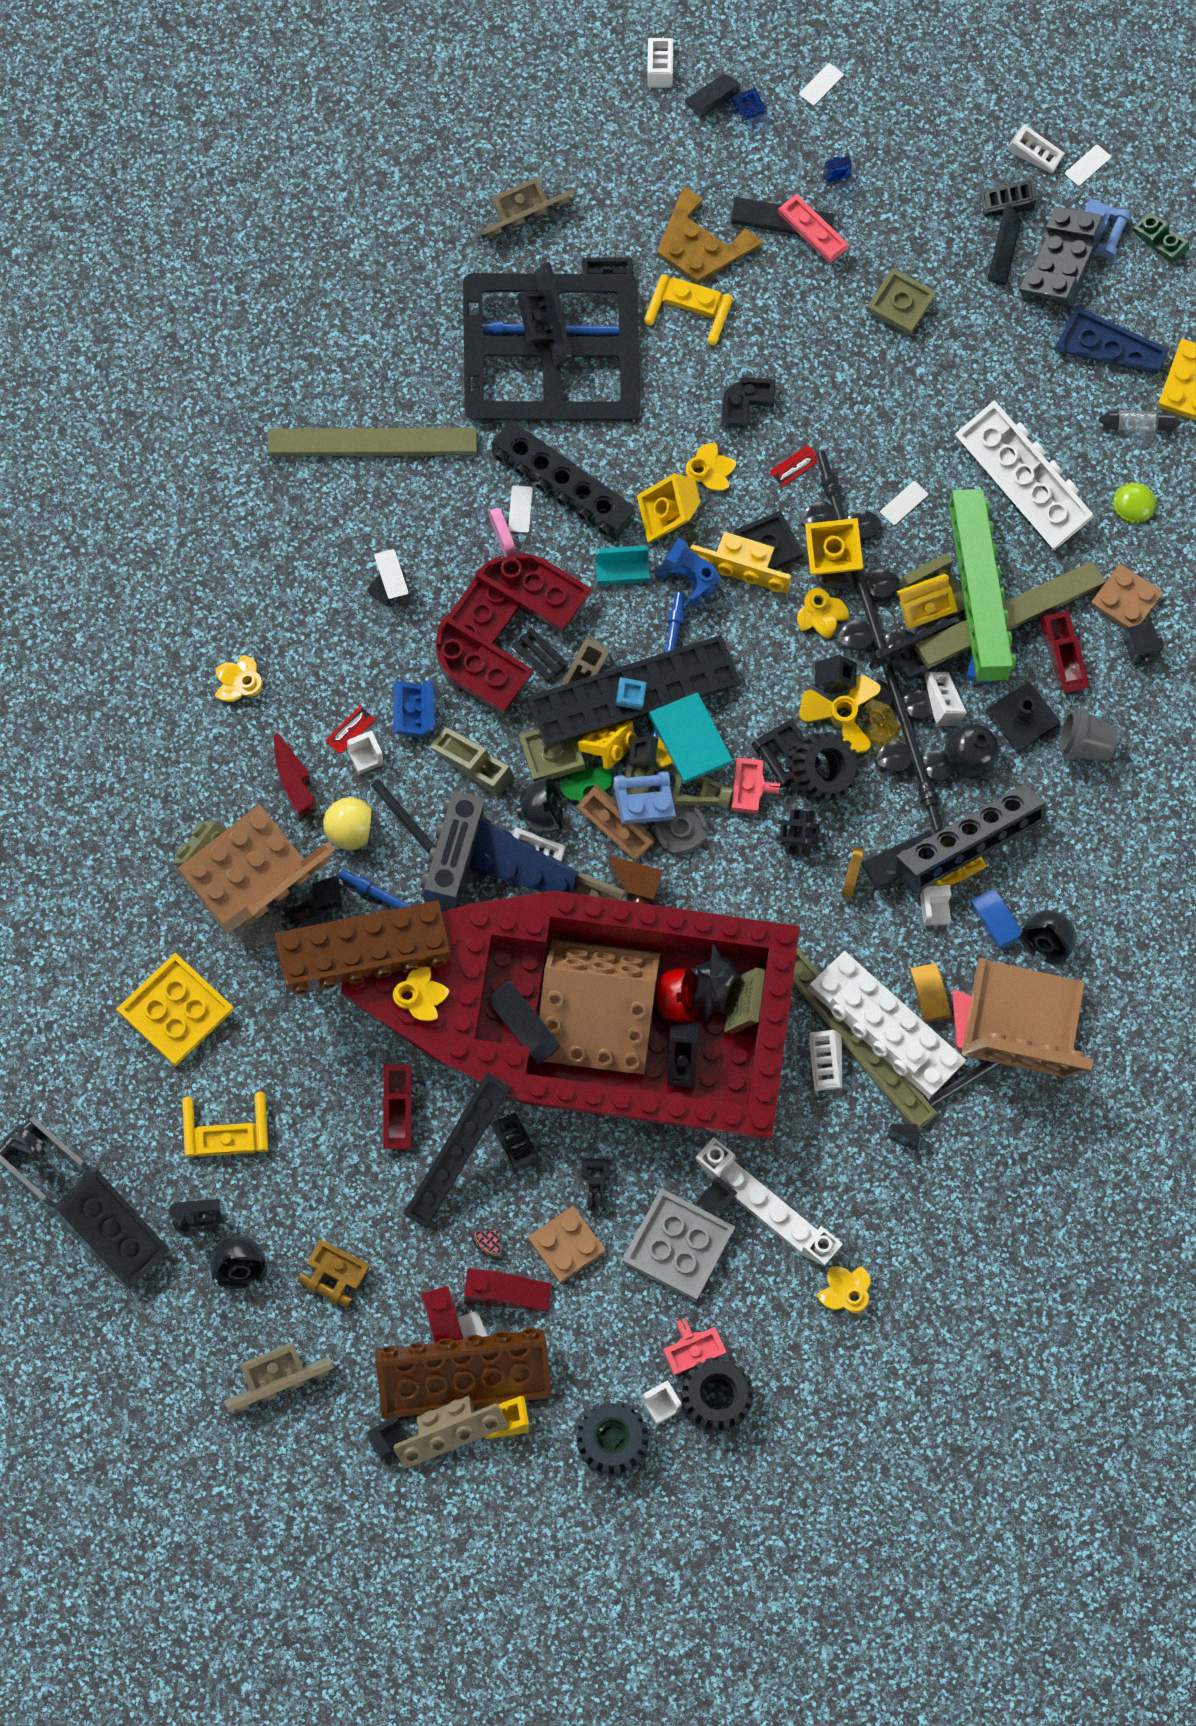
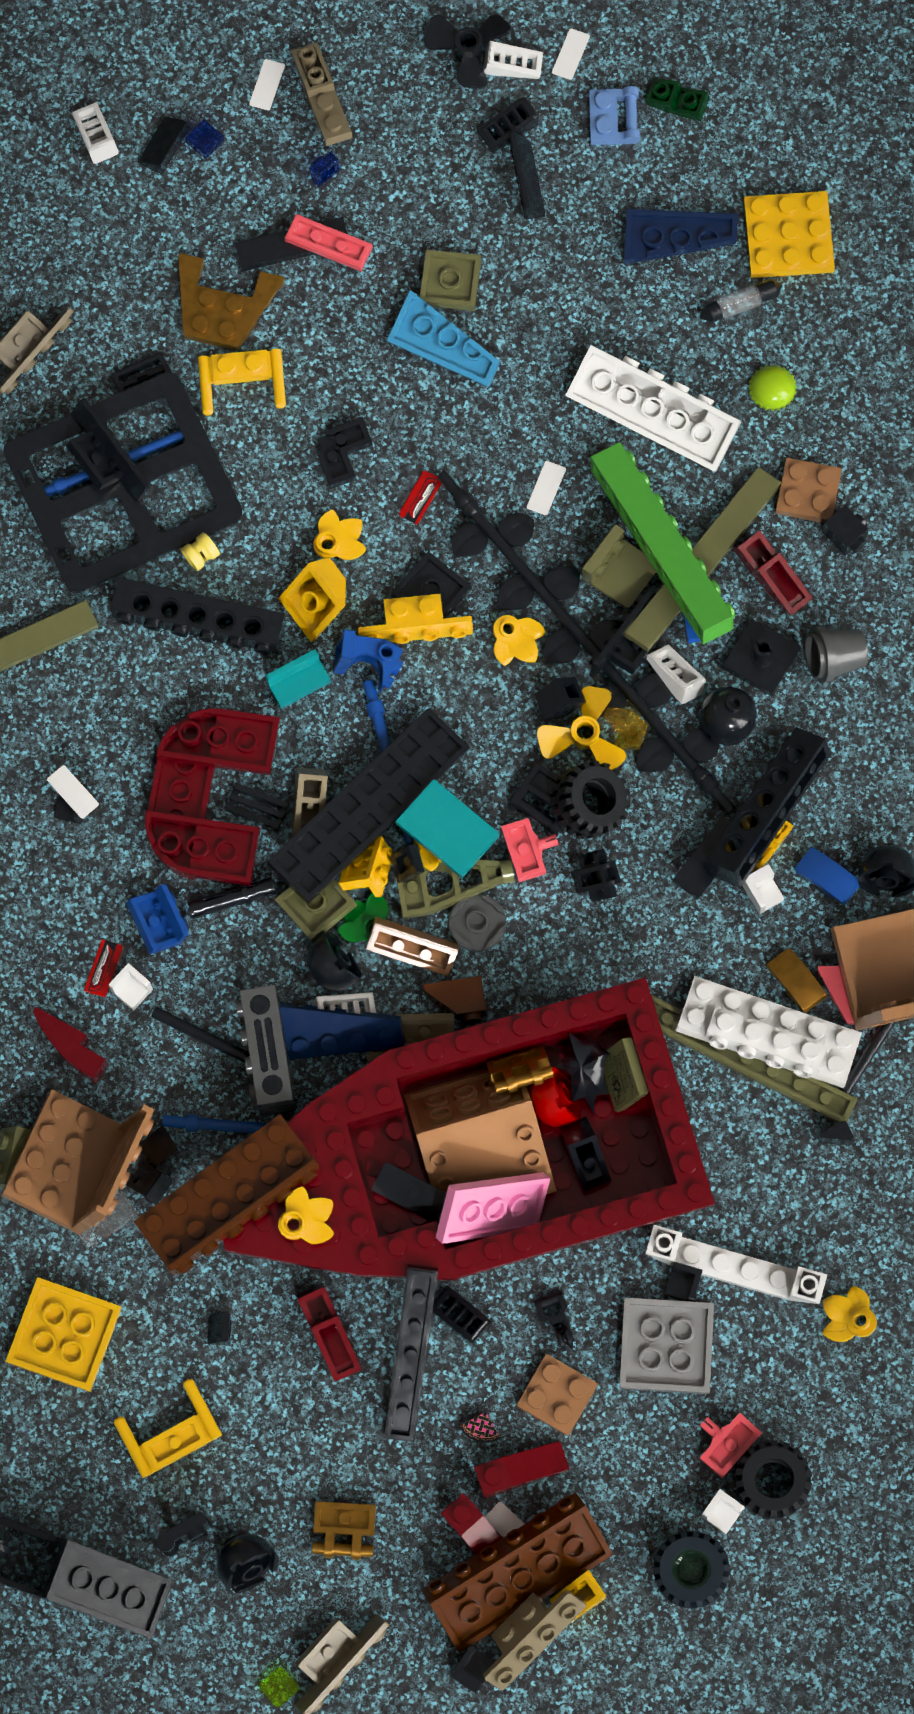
camera: 15 degrees left, 5 degrees up
(217, 1379) = (279, 1687): none -> clear neon green piece
(307, 1063) = (219, 1328): none -> black slope
(348, 823) = (148, 1068): light yellow helmet -> none
(473, 761) = (241, 947): olive slope -> none
(483, 718) = (224, 900): none -> black pin
(502, 532) = (162, 697): bright pink tile -> none
(520, 509) = (168, 663): white sticker -> none
(581, 1055) = (491, 1207): none -> bright pink plate
(589, 429) = (200, 551): none -> light yellow wheel
(631, 693) = (368, 810): dark azure tile -> none
(644, 806) = (434, 918): medium blue plate -> none
(658, 957) = (520, 1070): none -> pearl gold plate
(834, 546) = (500, 568): yellow slope -> none
(835, 1059) = (718, 1099): white slope -> none
(852, 873) = (667, 893): pearl gold tile -> none
(862, 108) = (321, 94): none -> dark tan slope
(869, 346) = (436, 339): none -> dark azure wing
(927, 601) = (616, 582): yellow plate -> none
(986, 105) = (443, 36): none -> black piece
(1064, 256) = (591, 162): piece -> none

